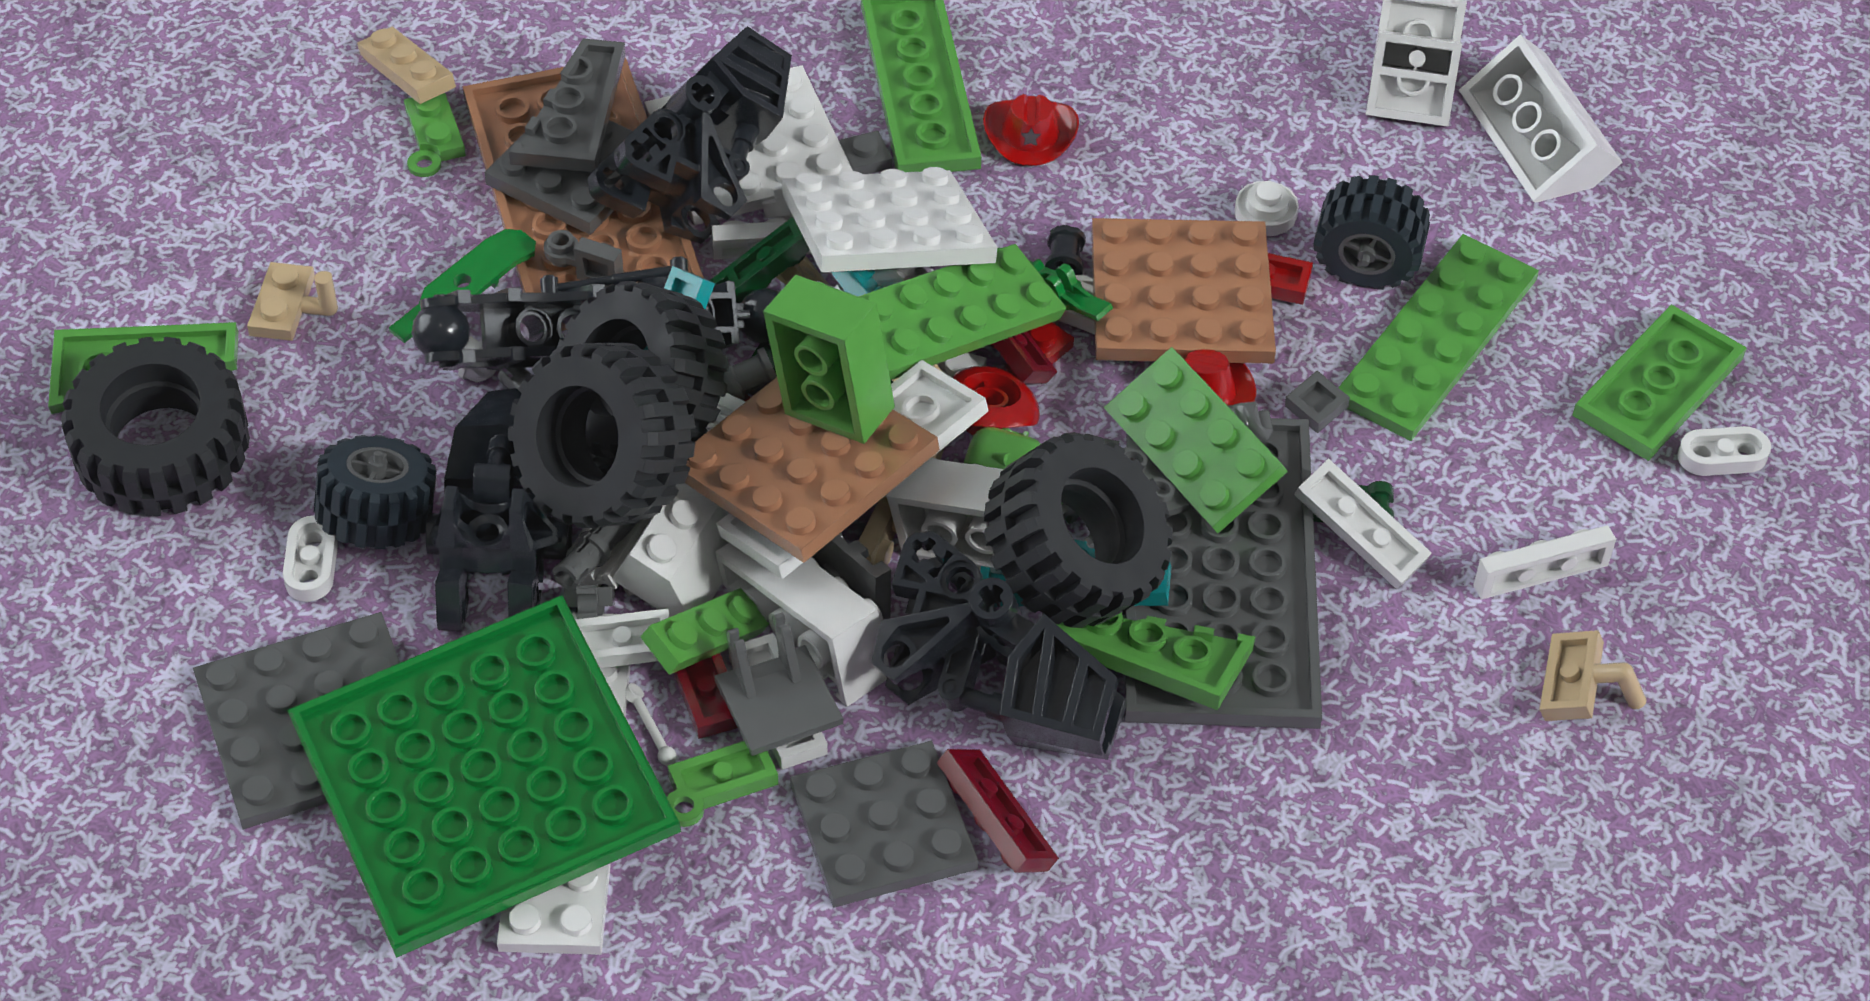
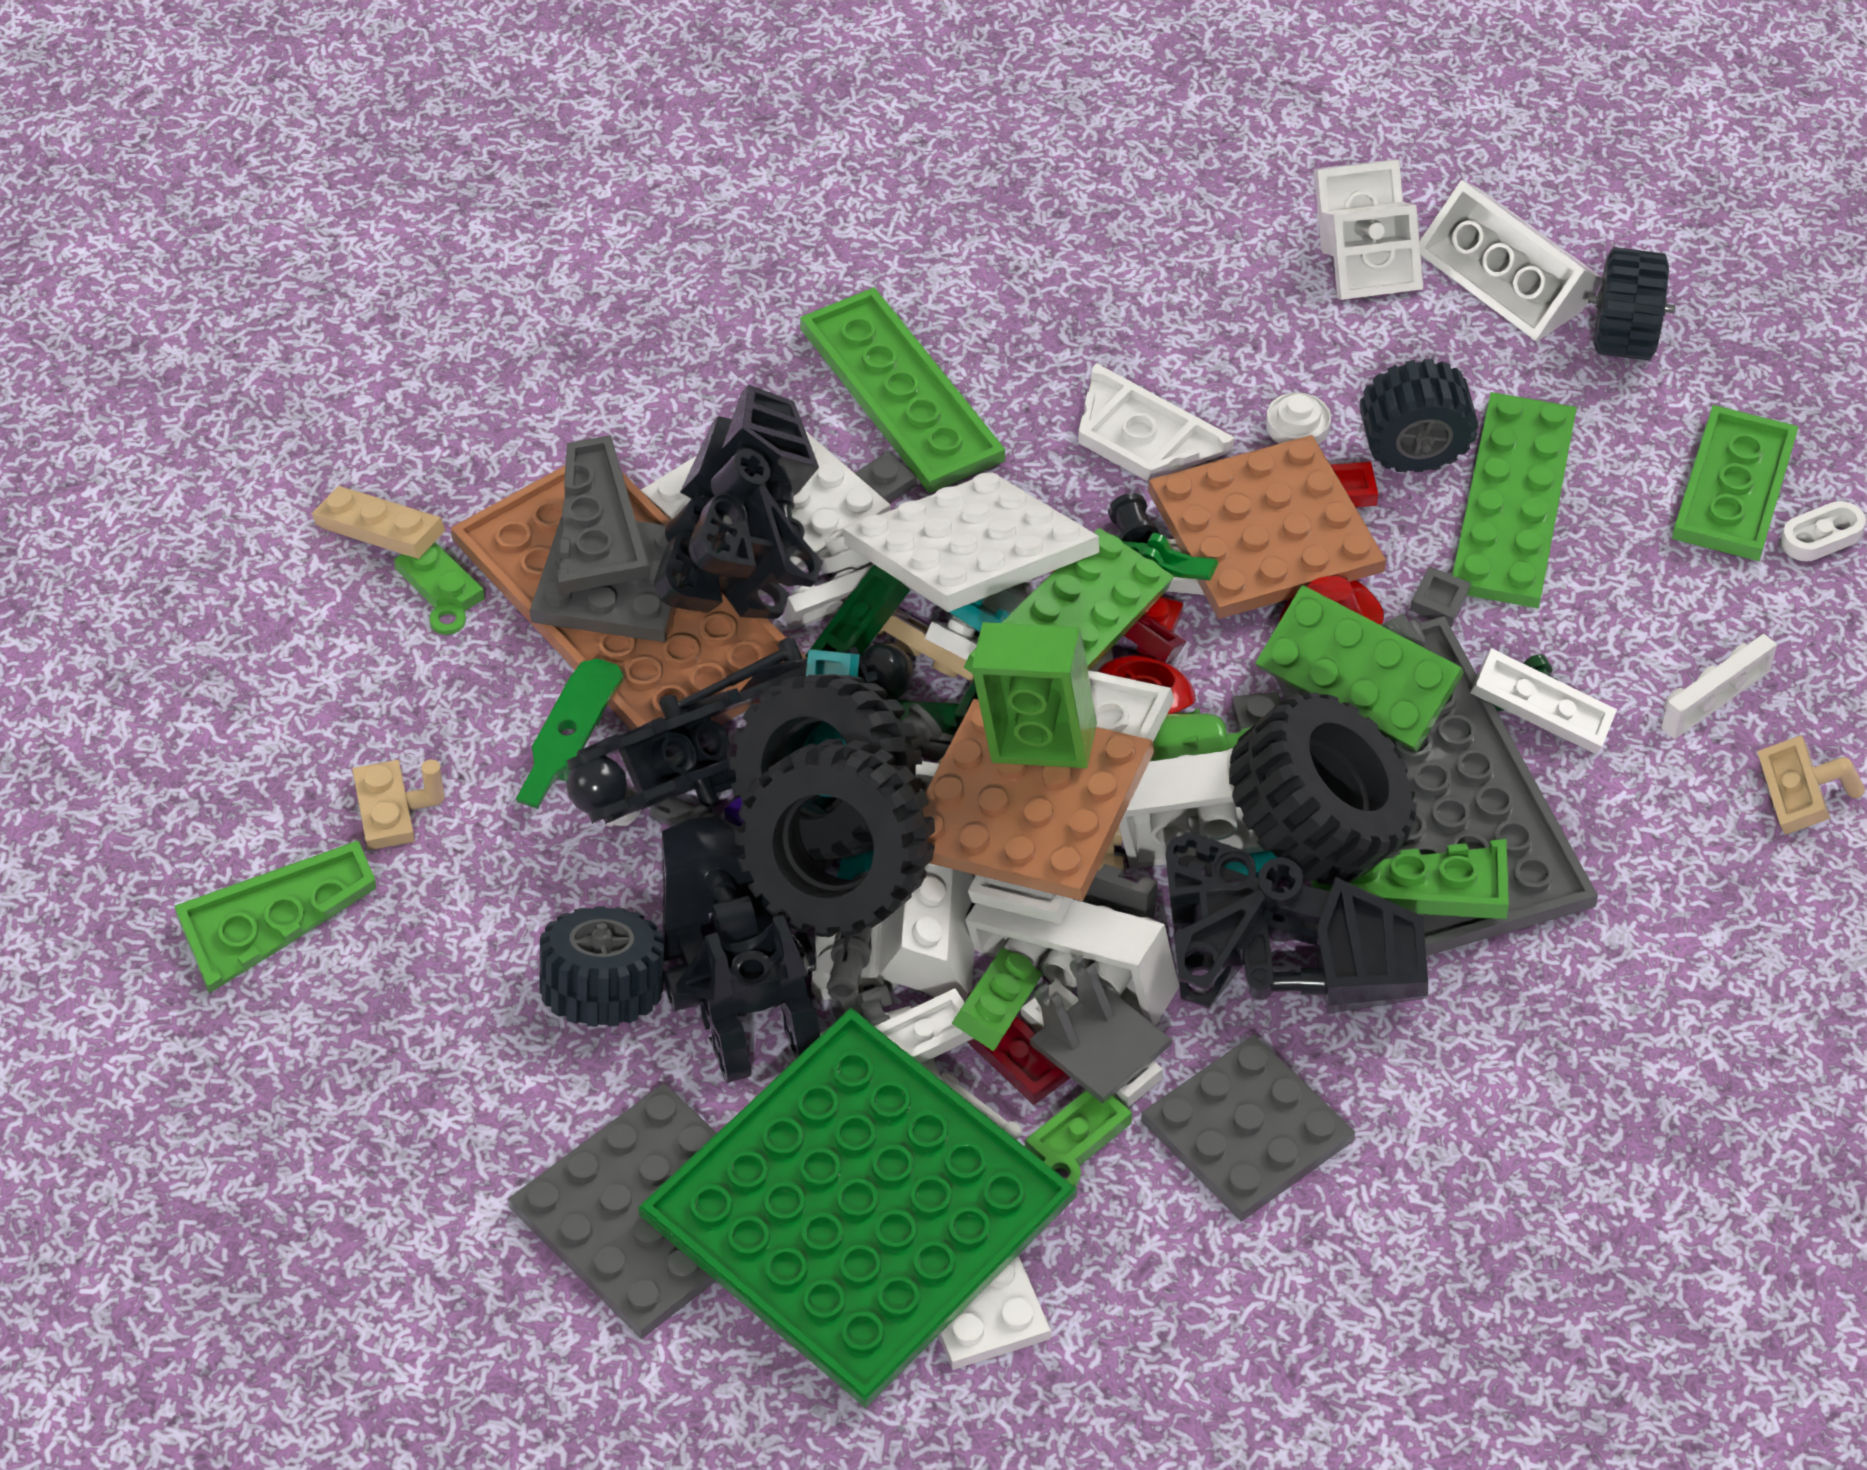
camera: 20 degrees left, 0 degrees up
(148, 379) = (337, 916): black tyre -> none
(309, 561) = (563, 1056): white plate -> none
(588, 256) = (691, 667): dark grey plate -> none
(997, 811) = (1349, 1080): dark red plate -> none
(1030, 128) = (1035, 406): red hat -> none
(1119, 176) = (1145, 430): none -> white wing
(1630, 189) = (1631, 303): none -> black wheel

